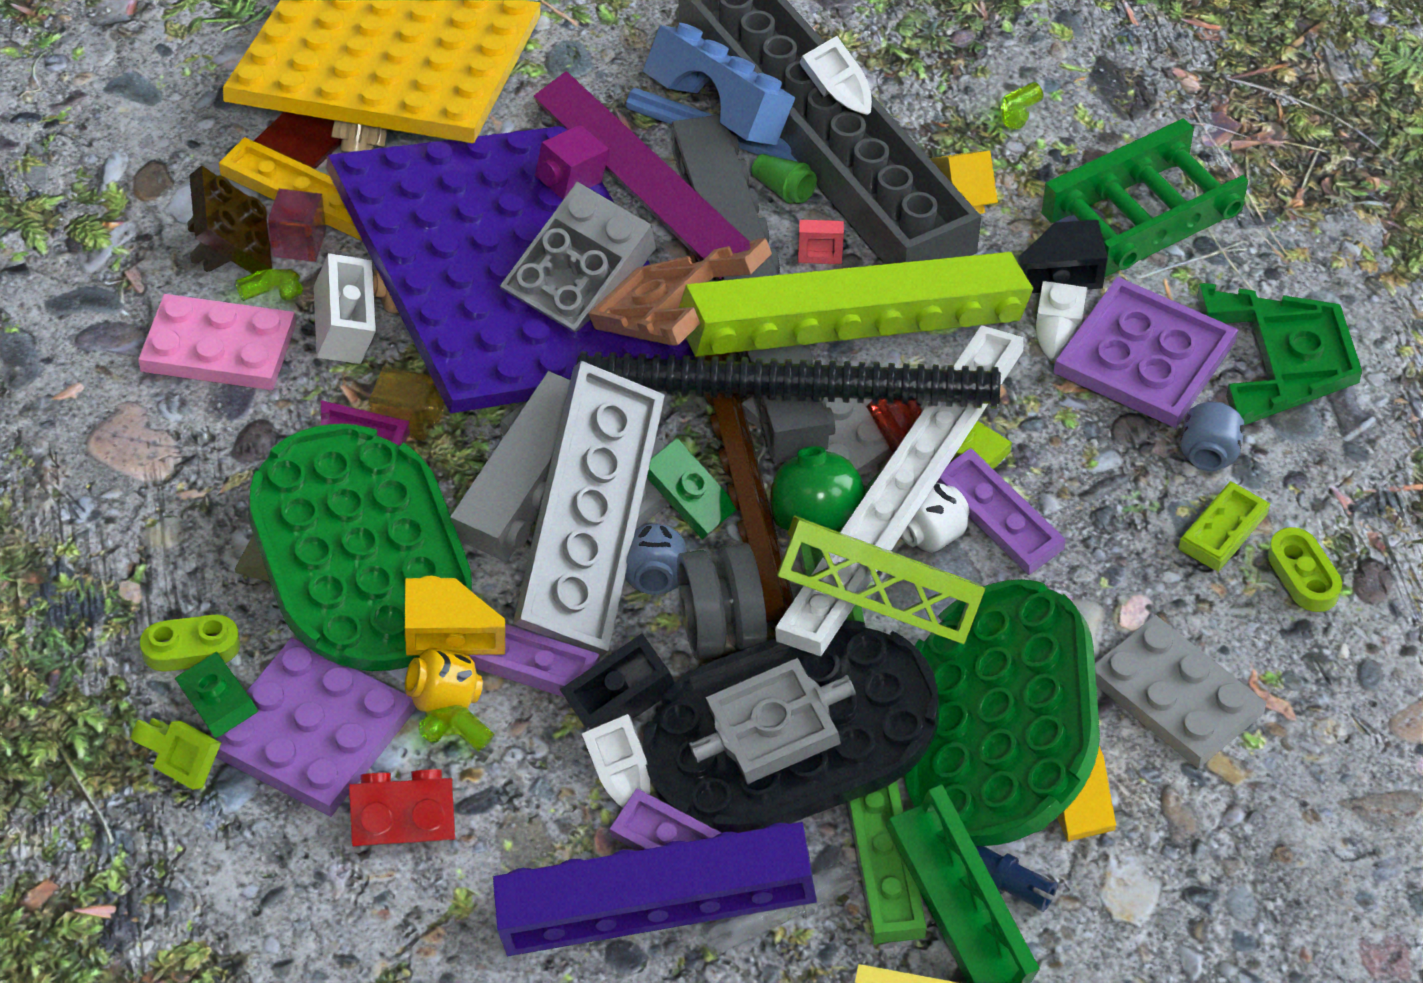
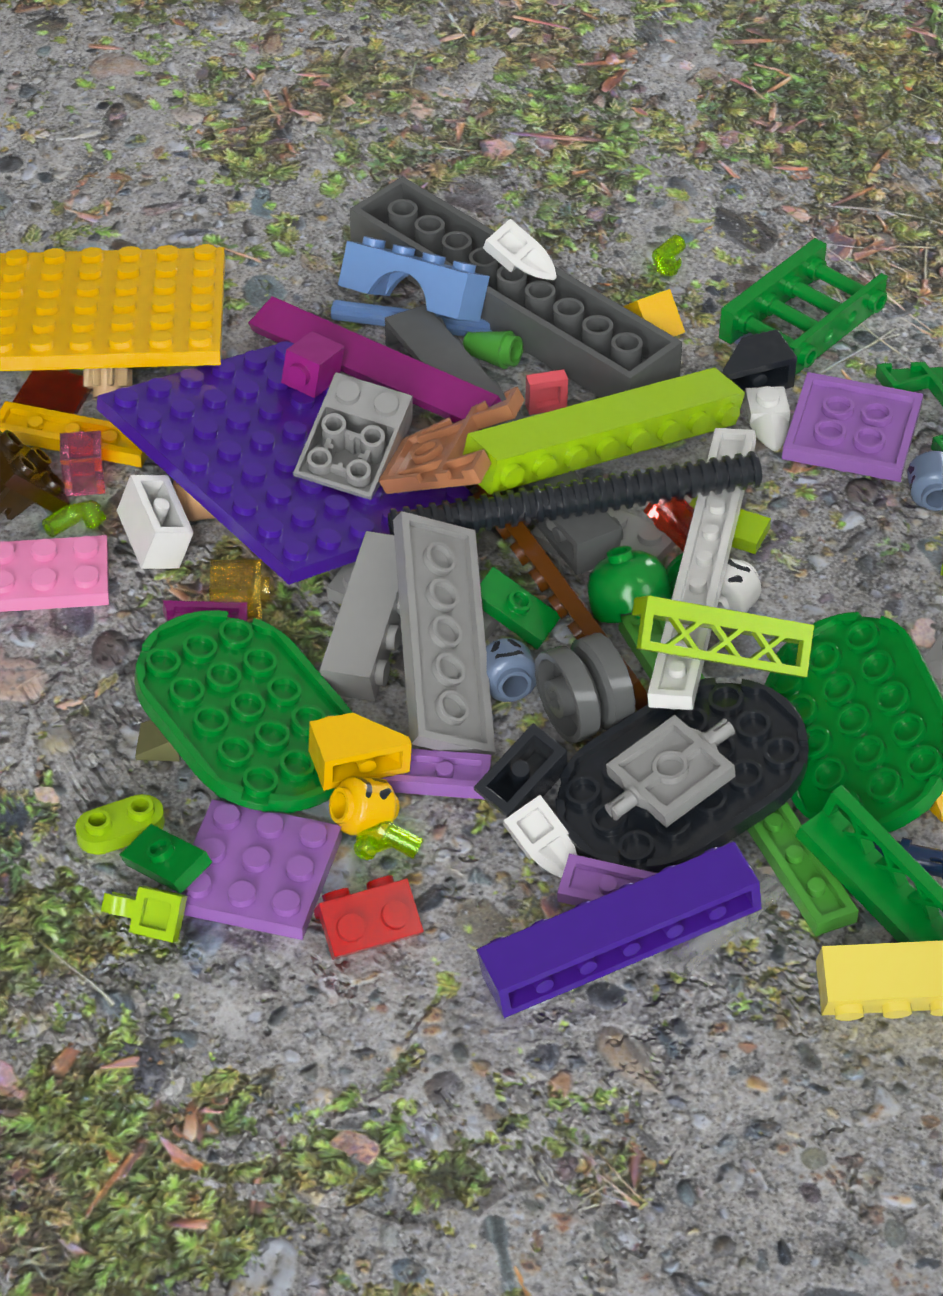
camera: 15 degrees left, 5 degrees down
(1003, 512) = (790, 574): medium lavender plate -> none

